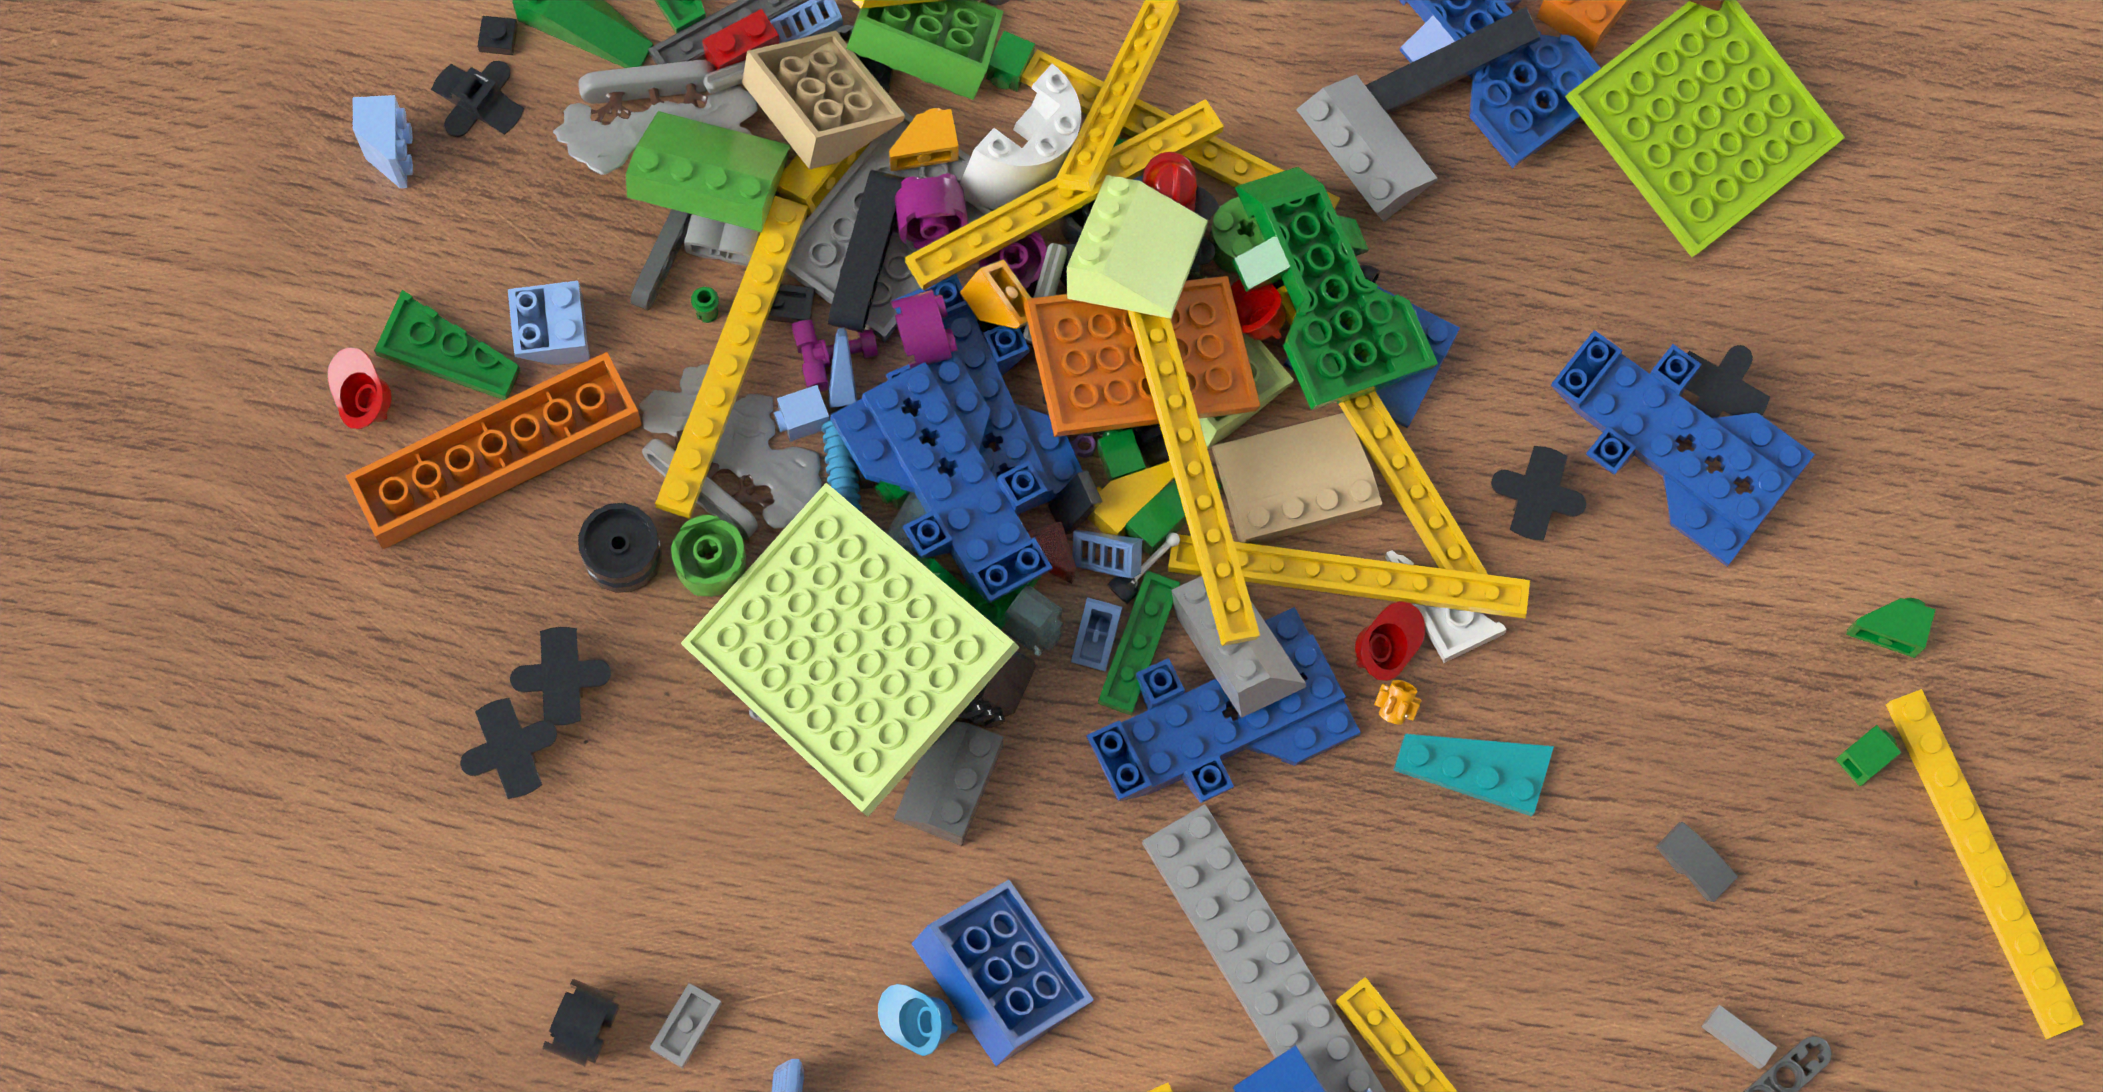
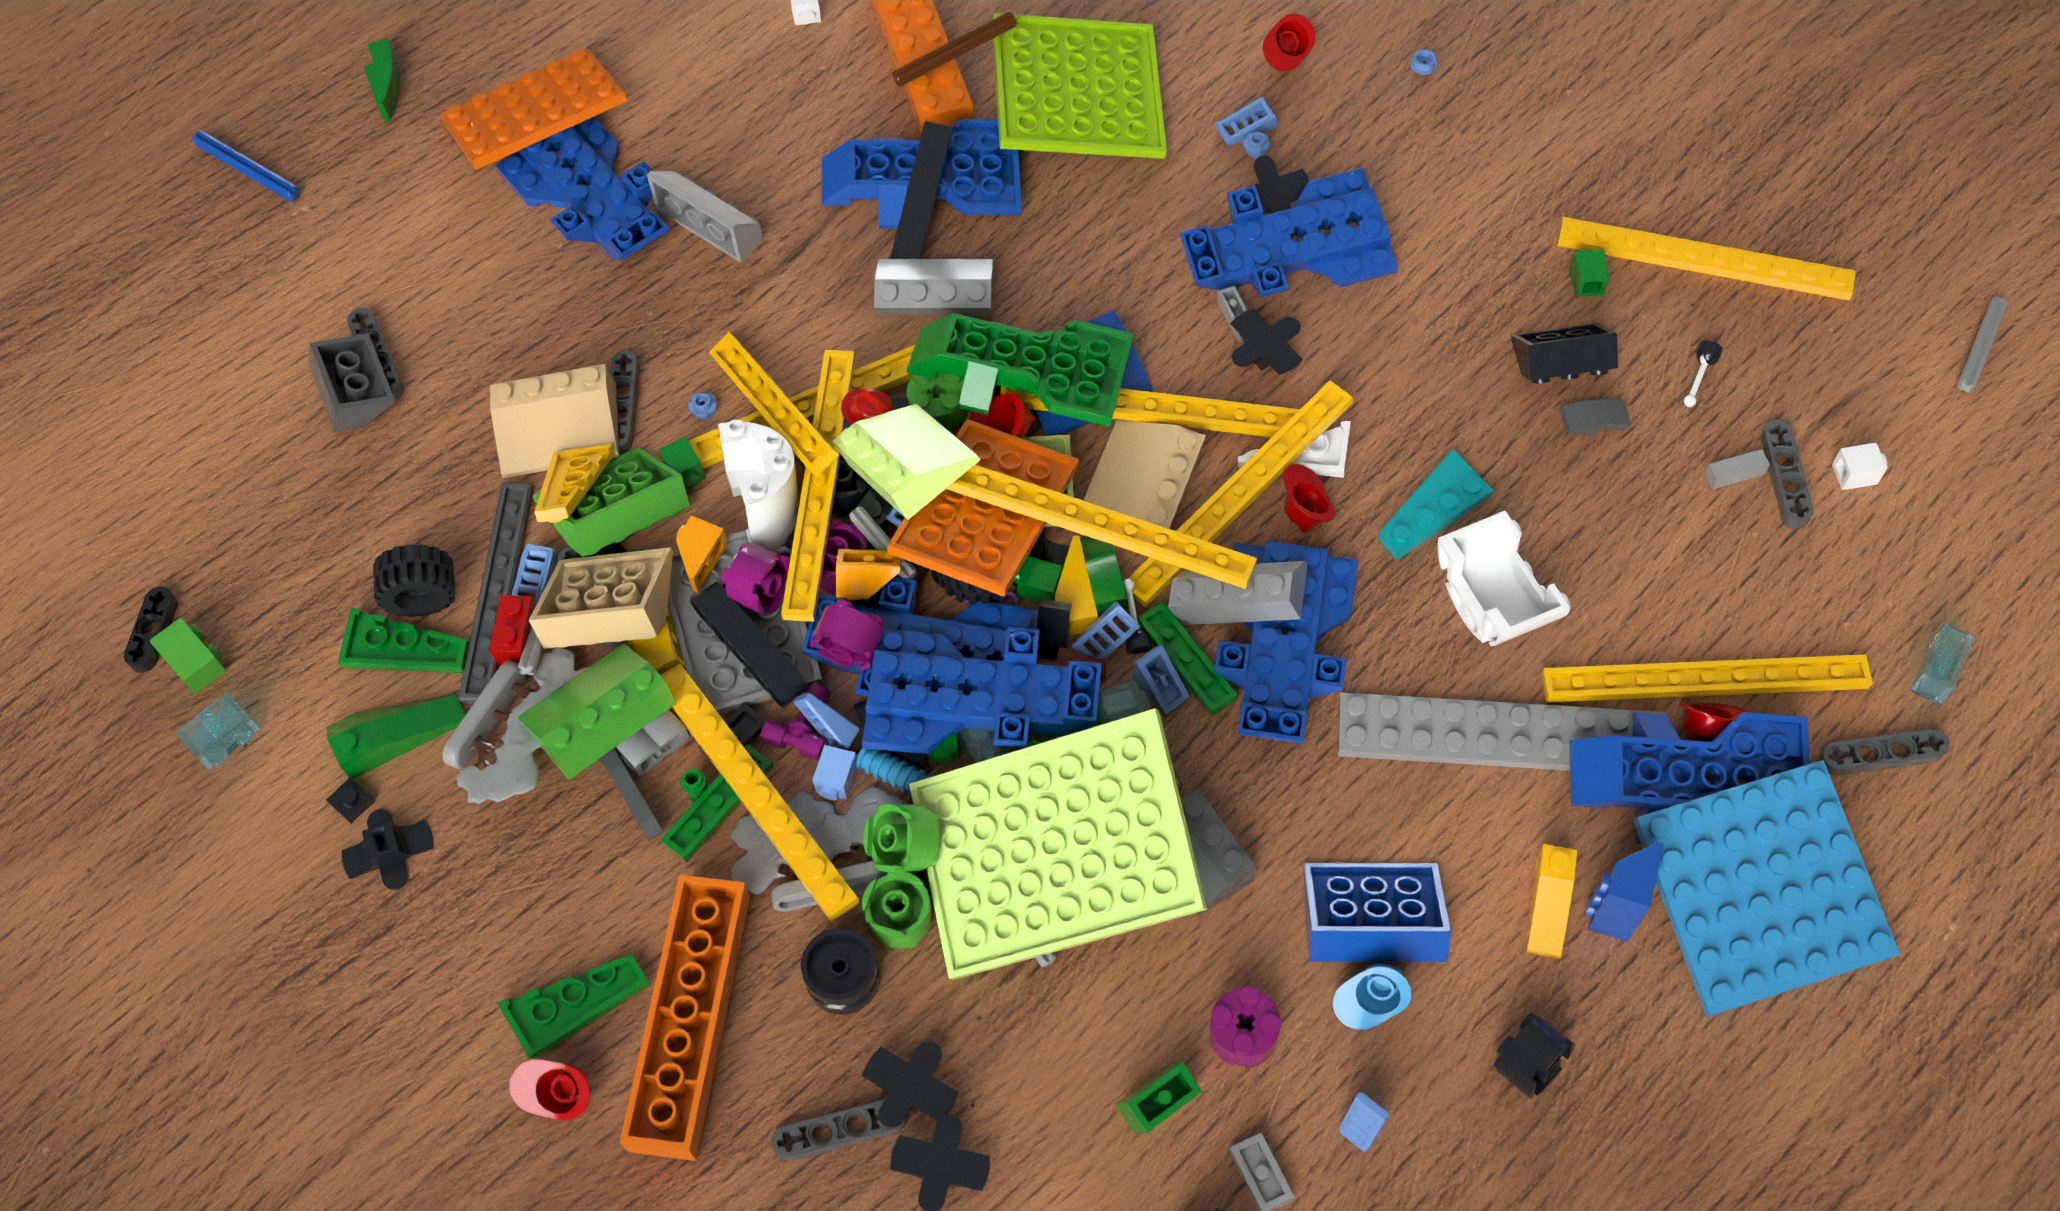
camera: 45 degrees left, 10 degrees down
(384, 136) = (362, 933): light blue slope -> none
(486, 647) = (841, 1136): none -> dark grey beam
(549, 323) = (618, 906): light blue slope -> none
(690, 892) = (1159, 1097): none -> green brick
(692, 334) = (707, 813): none -> green plate
(768, 513) = (902, 838): none -> bright green brick
(798, 906) = (1248, 1008): none -> magenta brick
(1083, 41) = (704, 411): none -> medium blue plate
(1398, 702) = (1353, 520): light orange gear -> none
(1423, 877) = (1493, 583): none -> white cylinder
(1563, 432) = (1231, 307): none -> light grey piece
(1751, 787) = (1566, 352): none -> black slope
(1775, 341) = (1256, 144): none -> medium blue plate
(1792, 318) = (1251, 111): none -> medium blue slope
(1857, 932) = (1707, 354): none -> hinge
(1896, 626) = (1512, 202): green slope -> none
(1922, 284) = (1289, 42): none -> red piece
(2019, 427) = (1423, 62): none -> medium blue plate

